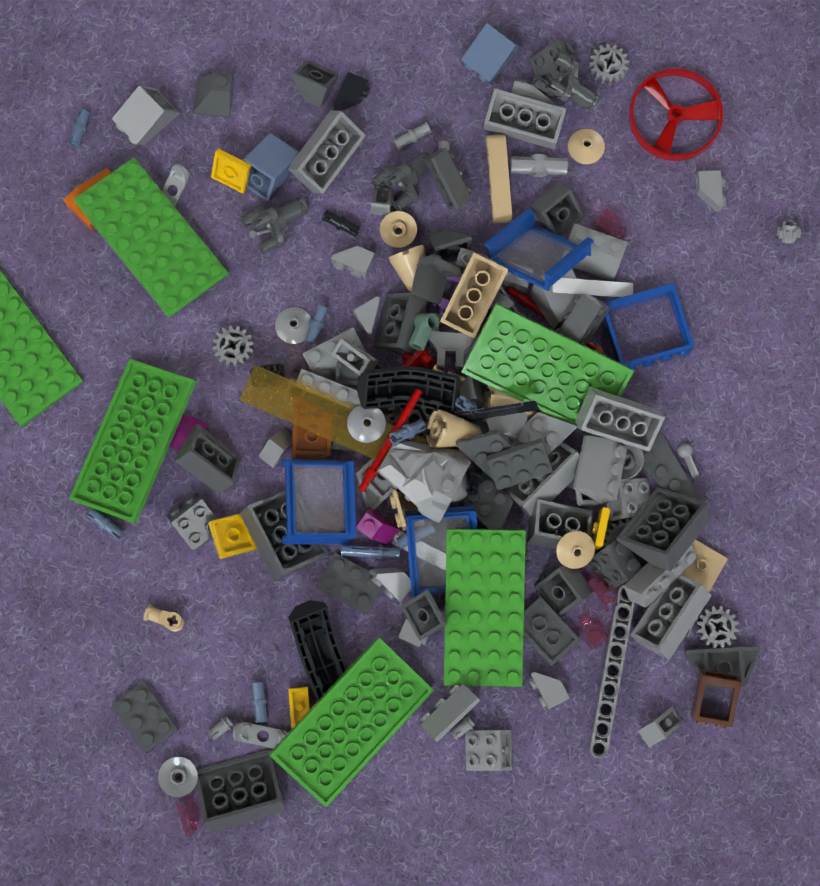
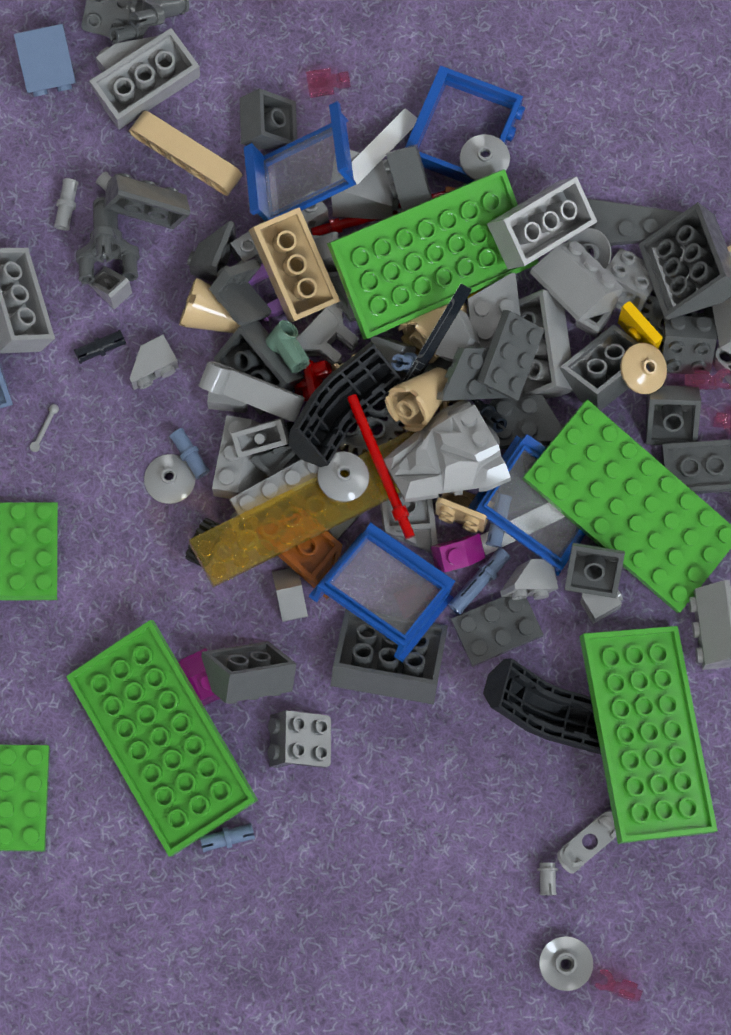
camera: 50 degrees left, 5 degrees down
(145, 717) = (473, 953): dark grey plate -> none
(163, 618) = (380, 851): tan connector -> none
(227, 350) = (132, 554): light grey gear -> none
(231, 536) = (348, 712): yellow plate -> none
(239, 791) = (632, 909): dark grey slope -> none
(259, 702) = (550, 817): sand blue pin -> none
(275, 220) = (42, 411): dark grey wheel -> none
(298, 703) = (587, 778): yellow hinge -> none
(377, 328) = (251, 390): none -> light grey beam
(394, 221) = (156, 282): tan dish -> none
(407, 431) = (386, 441): sand blue pin -> none
(539, 165) = (205, 103): light grey piece -> none
(584, 154) = (224, 53): tan dish -> none
(605, 252) = (356, 104): light grey slope -> none
(637, 363) = (477, 166): none -> light grey dish
(685, 451) = (621, 190): light grey bar -> none

